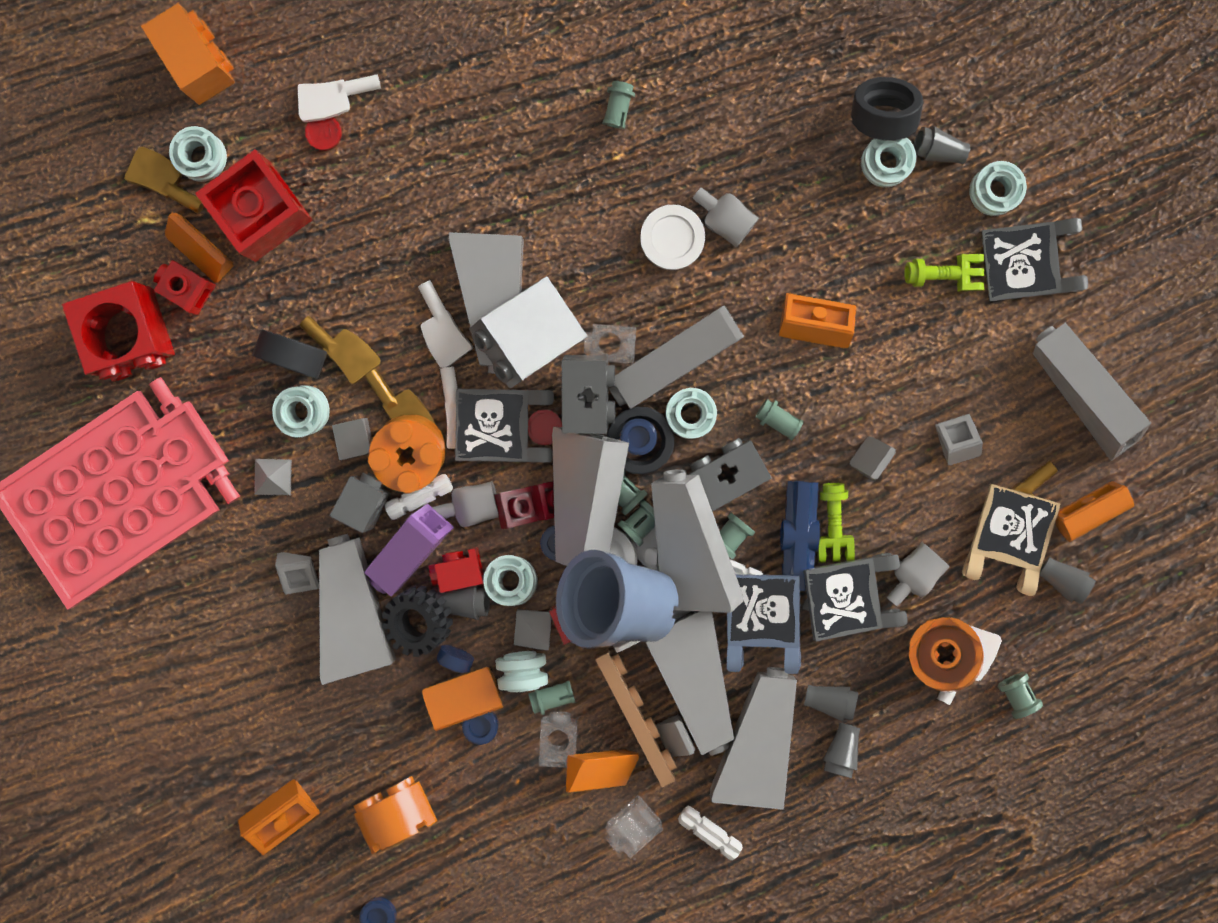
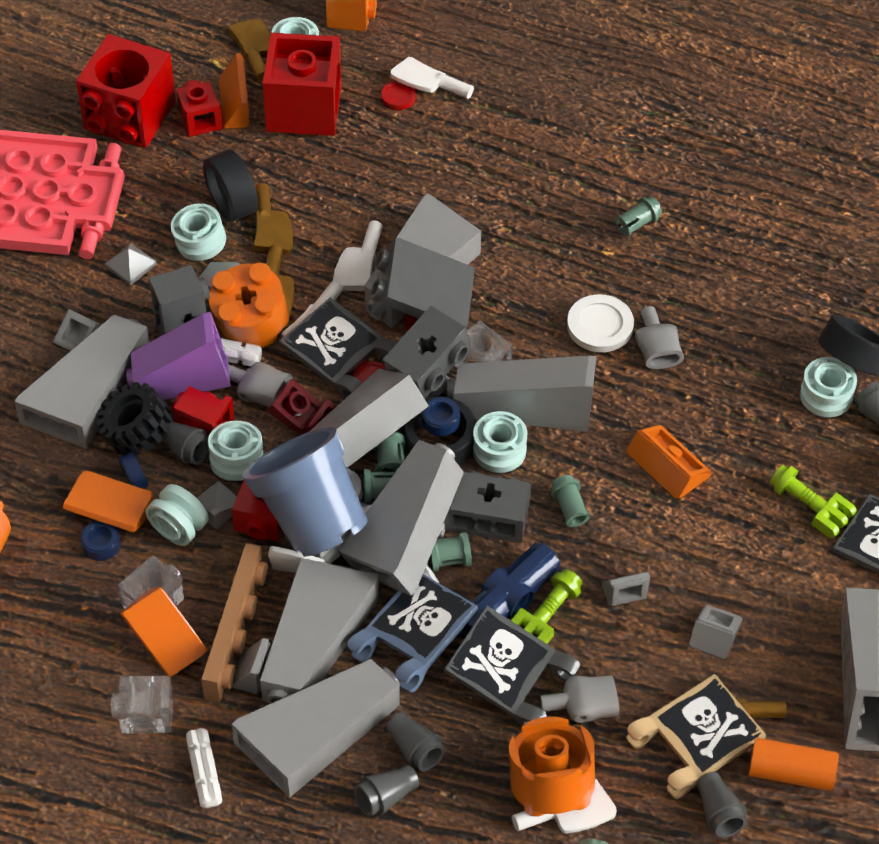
camera: 35 degrees right, 35 degrees down
(551, 697) = (182, 558): sand green pin -> none

